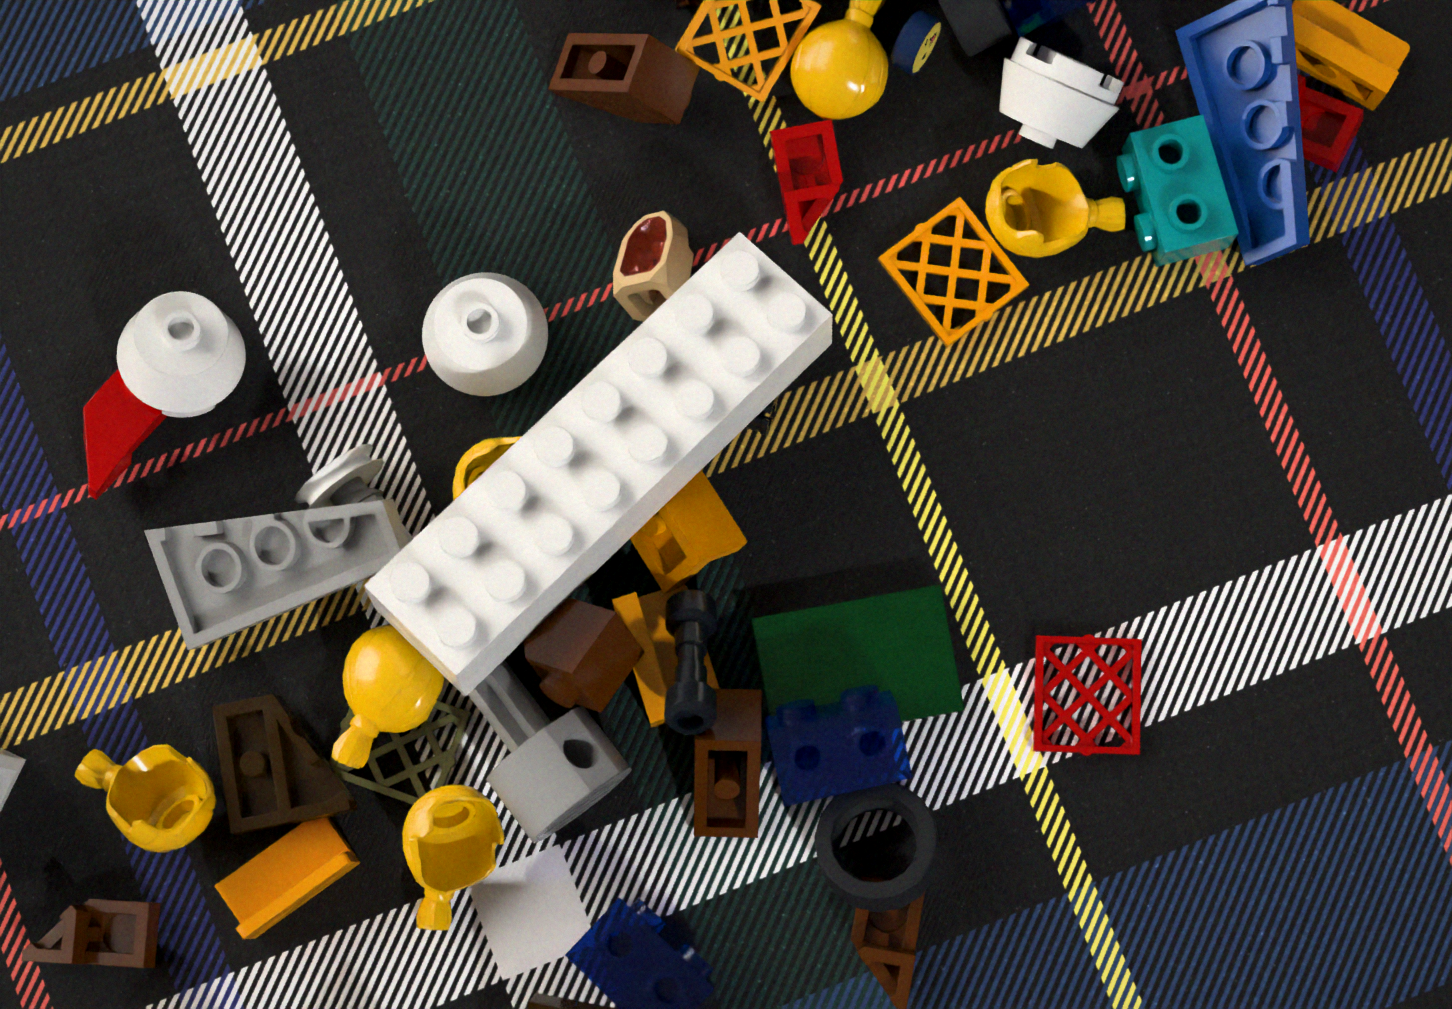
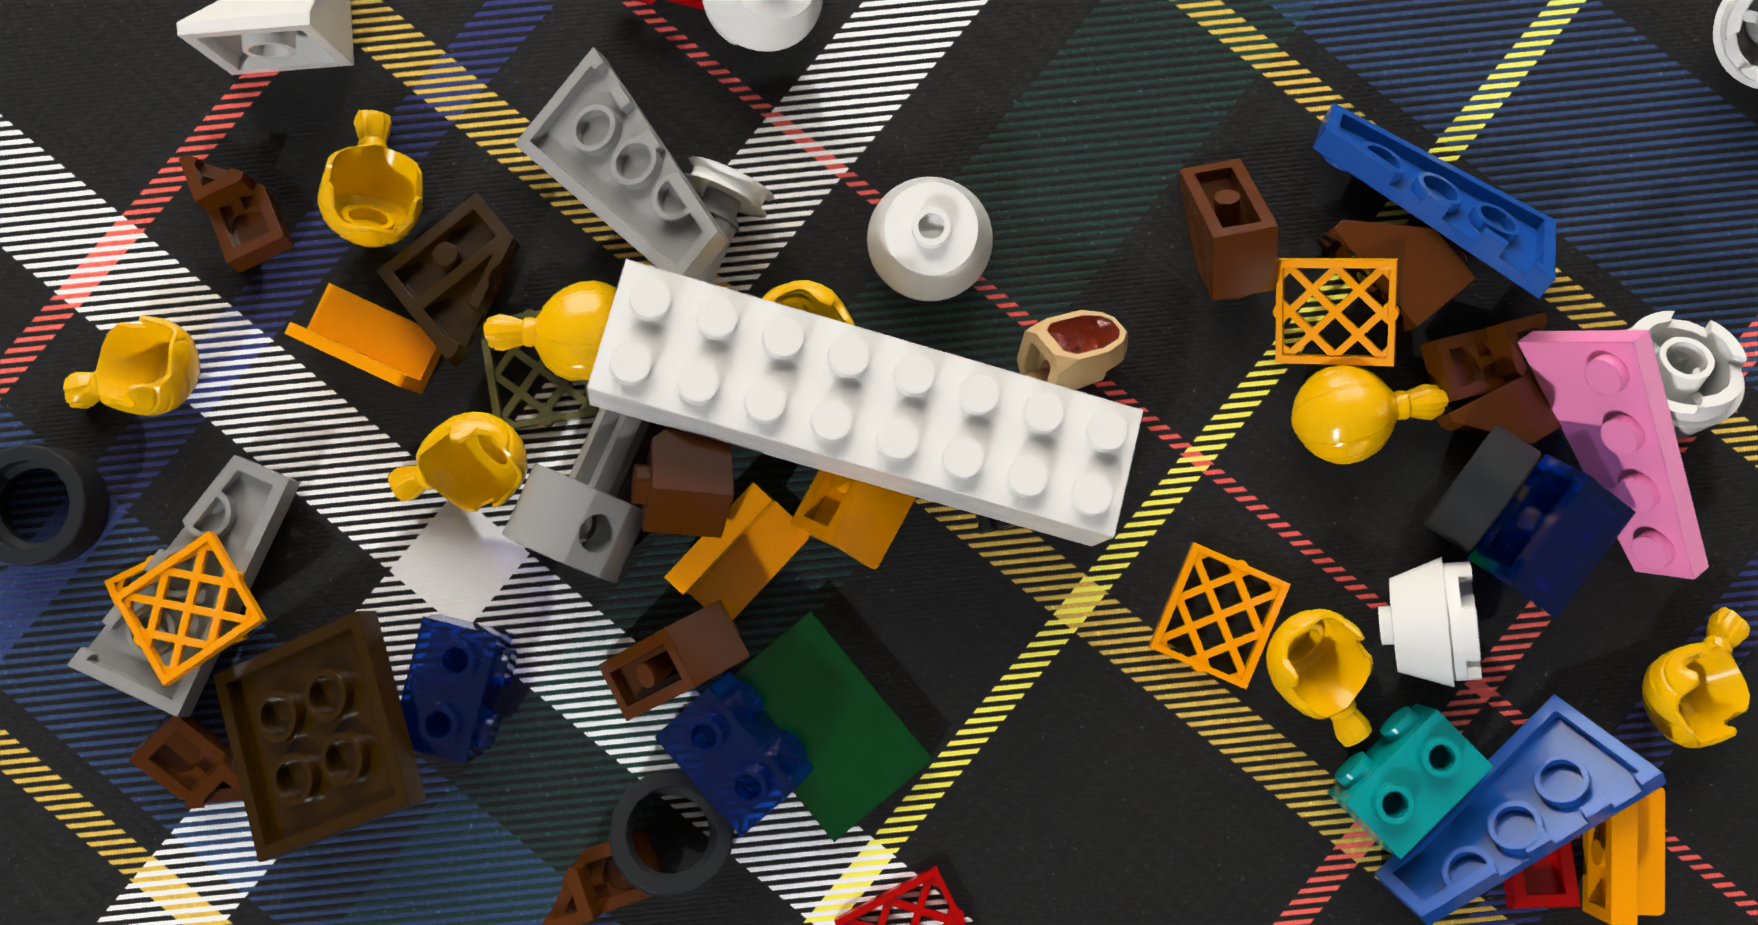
camera: 65 degrees right, 5 degrees up
(690, 702) = (694, 605): black piece -> none
(806, 173) = (1233, 437): red slope -> none
(916, 42) = (1409, 468): dark blue tile -> none

